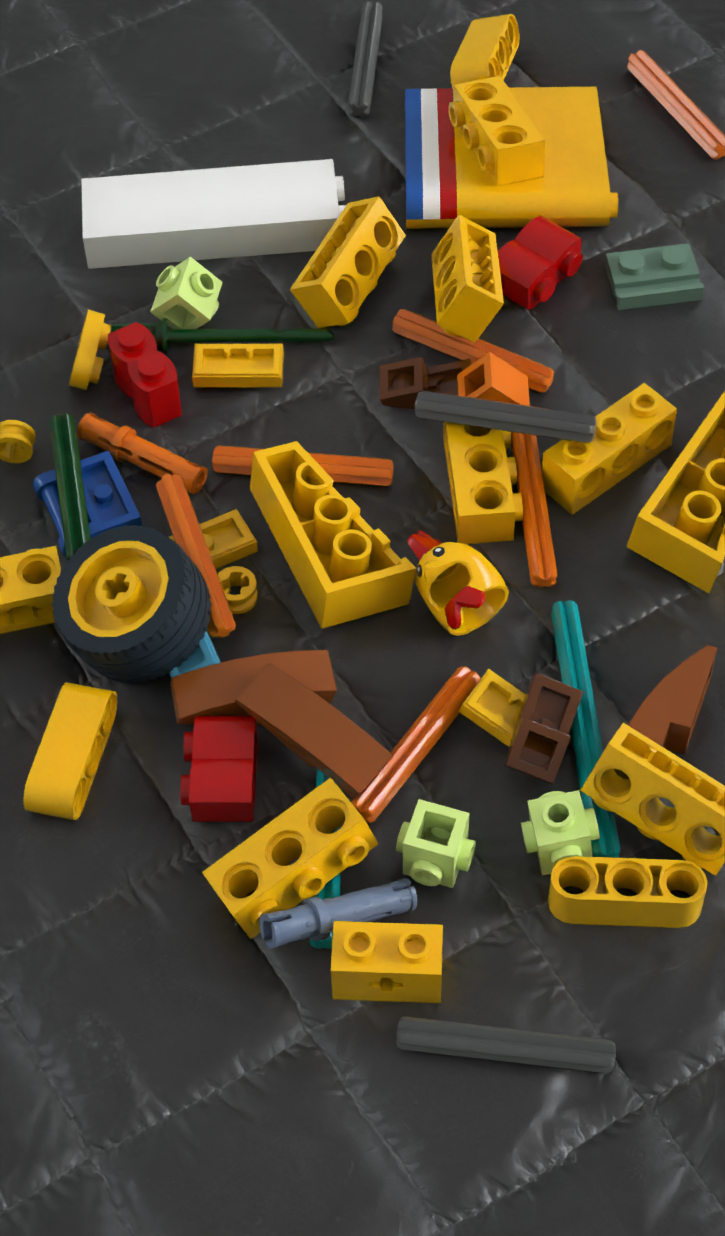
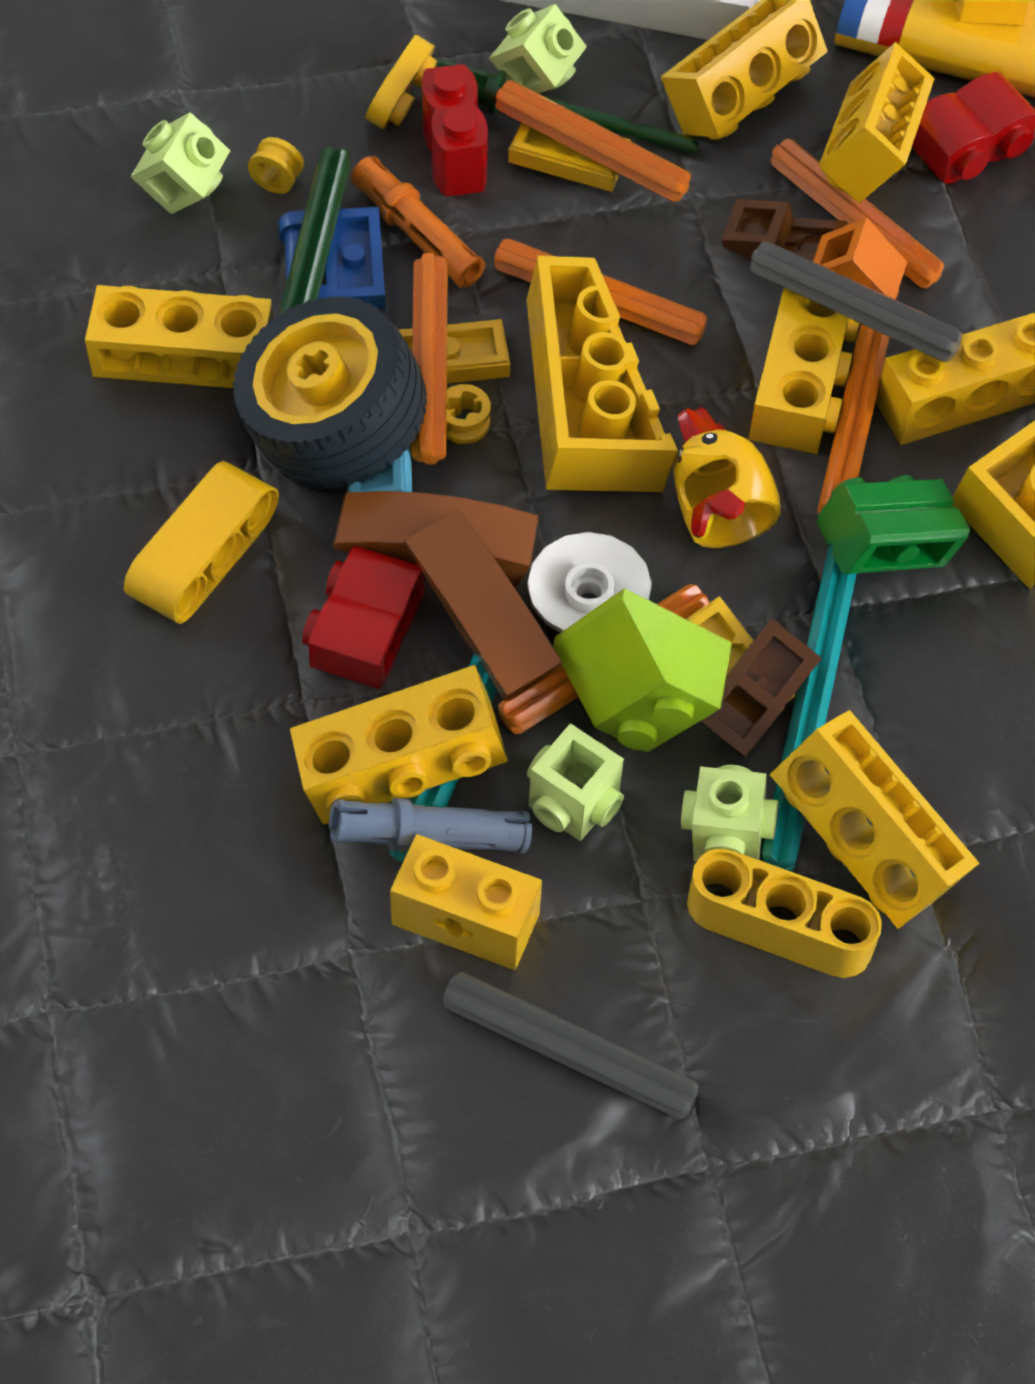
camera: 15 degrees right, 5 degrees up
(256, 352) = (593, 141): none -> orange axle
(385, 675) = (581, 566): none -> white dish
(457, 741) = (643, 670): none -> lime slope
(594, 576) = (892, 525): none -> green brick
(675, 703) = (930, 710): dark orange slope -> none

